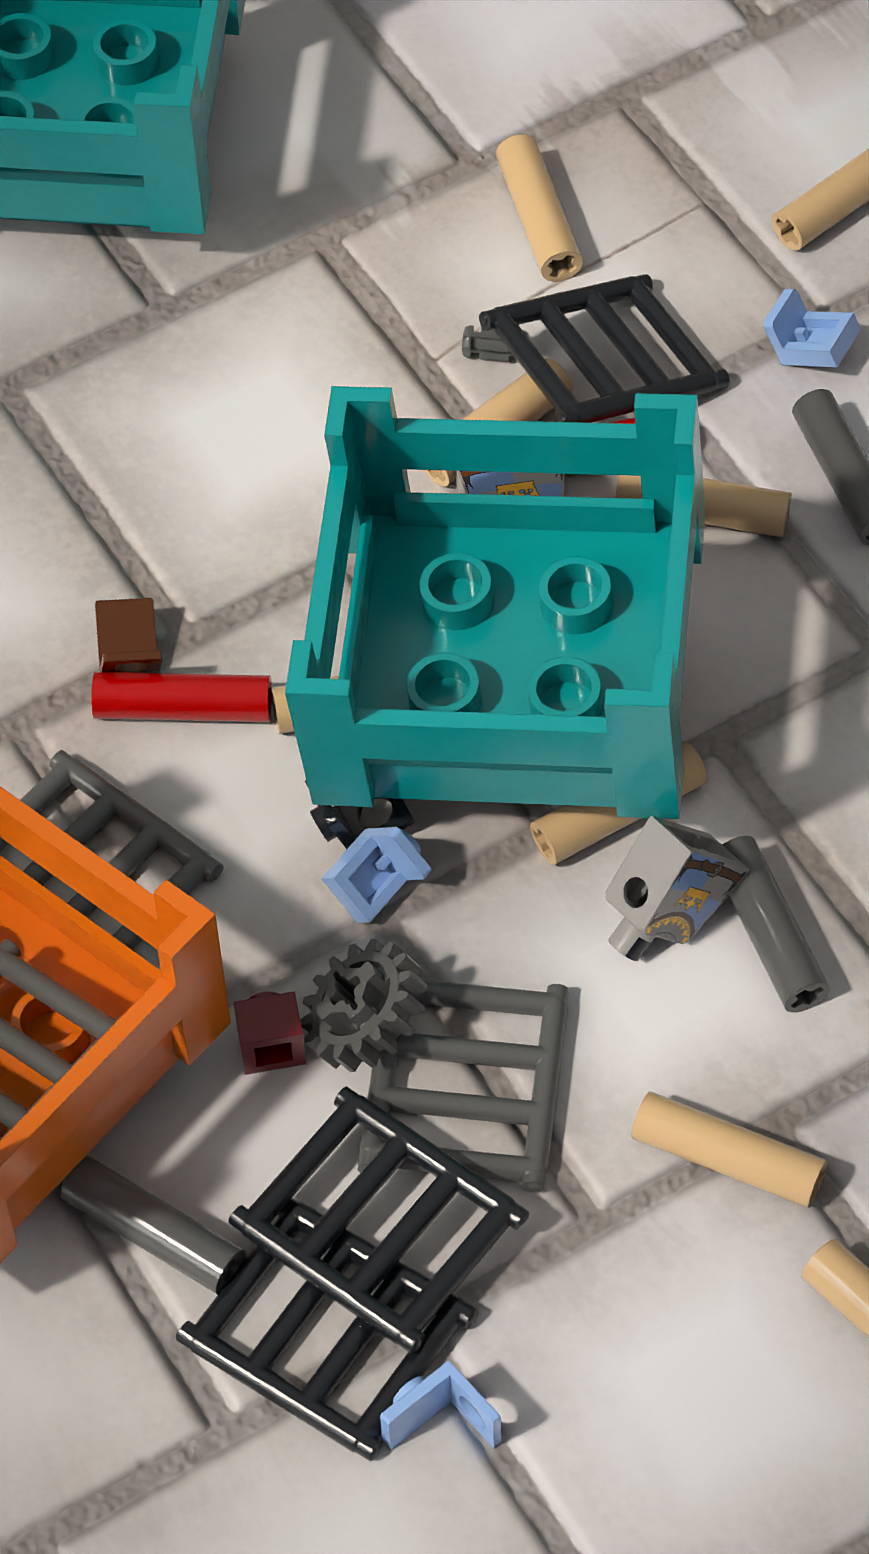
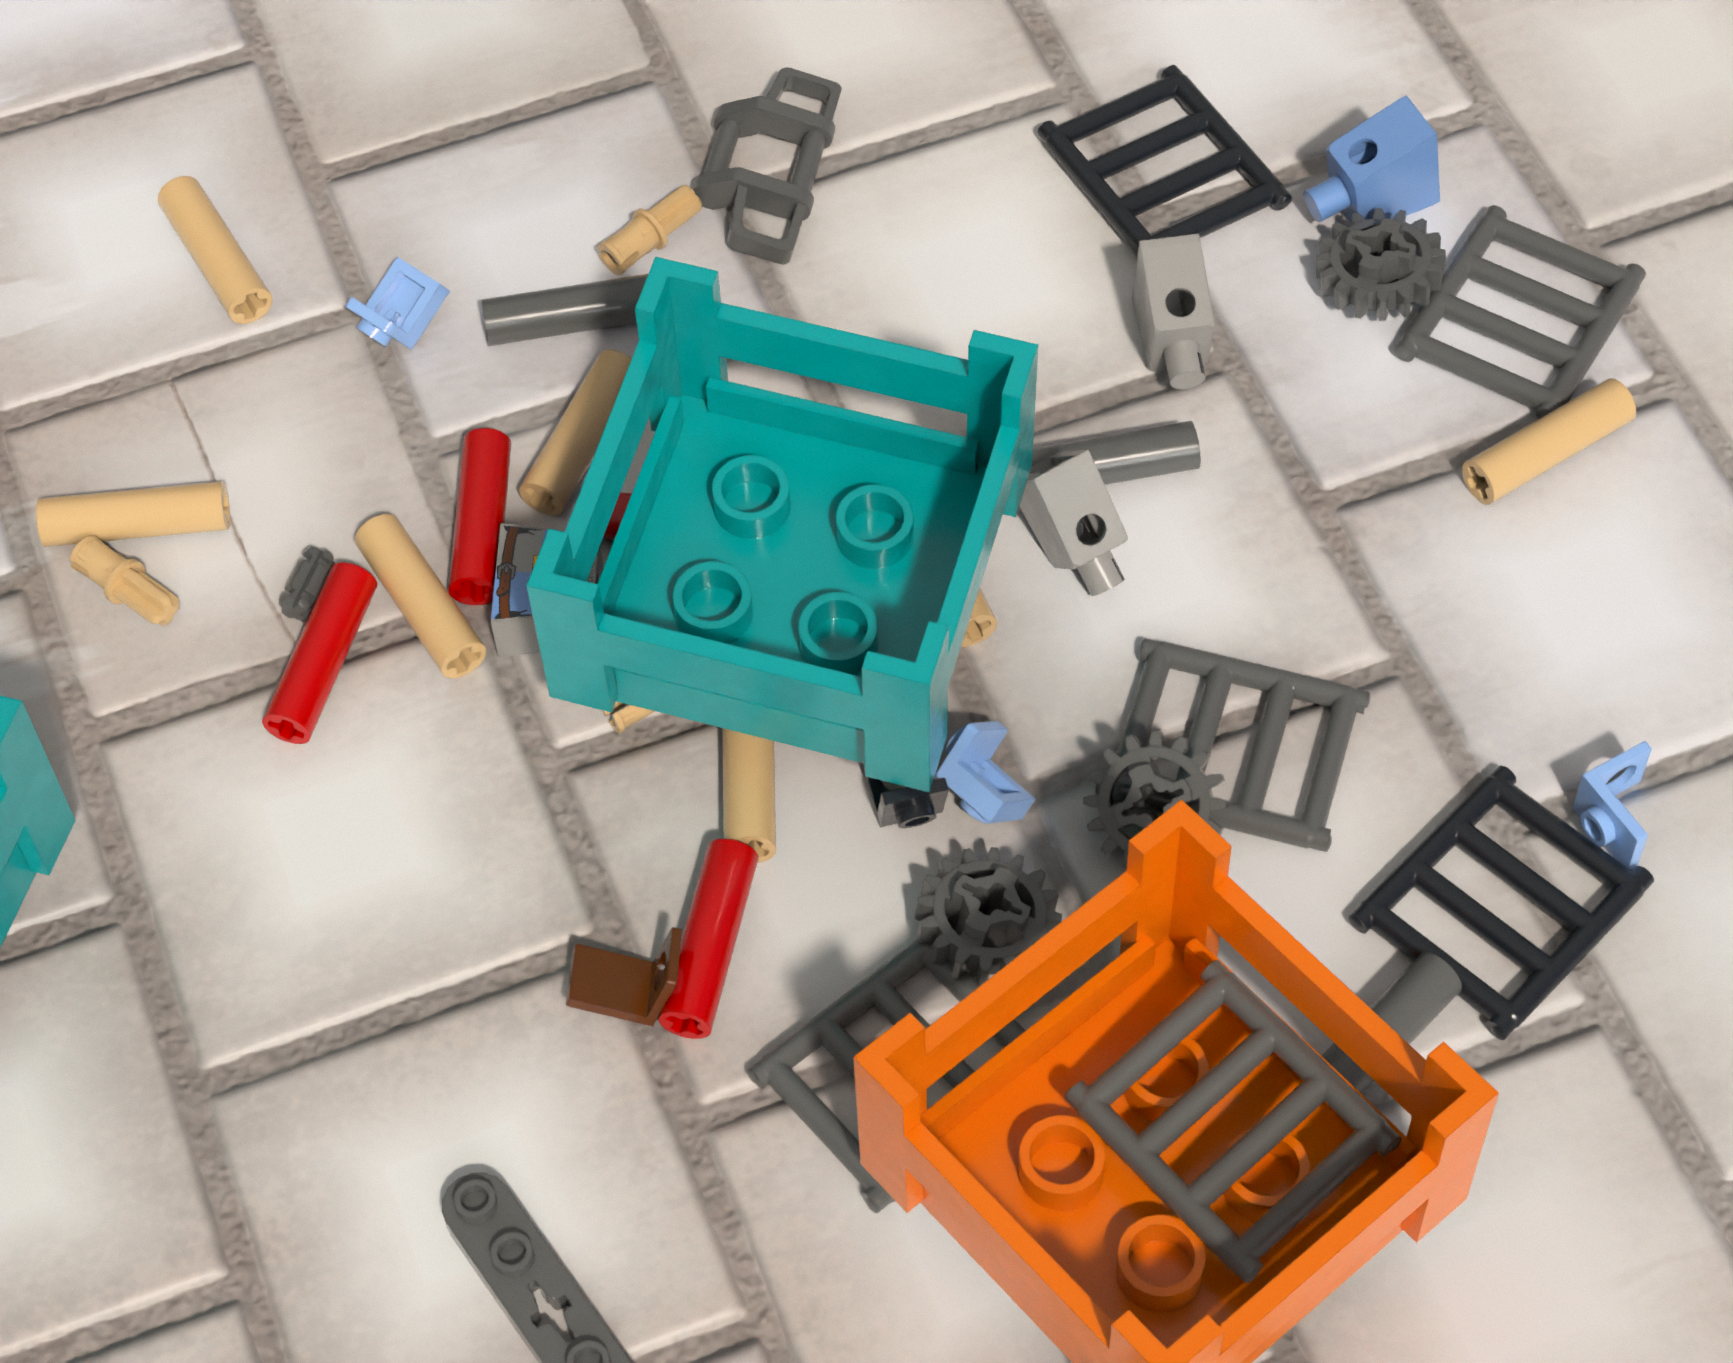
camera: 80 degrees left, 0 degrees up
(251, 909) = (990, 907): none -> dark grey gear
(356, 1292) = (1436, 897): black bar -> none
(421, 366) = (320, 653): none -> red piece
(470, 219) = (124, 580): none -> tan axle
(596, 301) = (300, 513): black bar -> none
(729, 1149) = (1351, 533): tan piece -> none

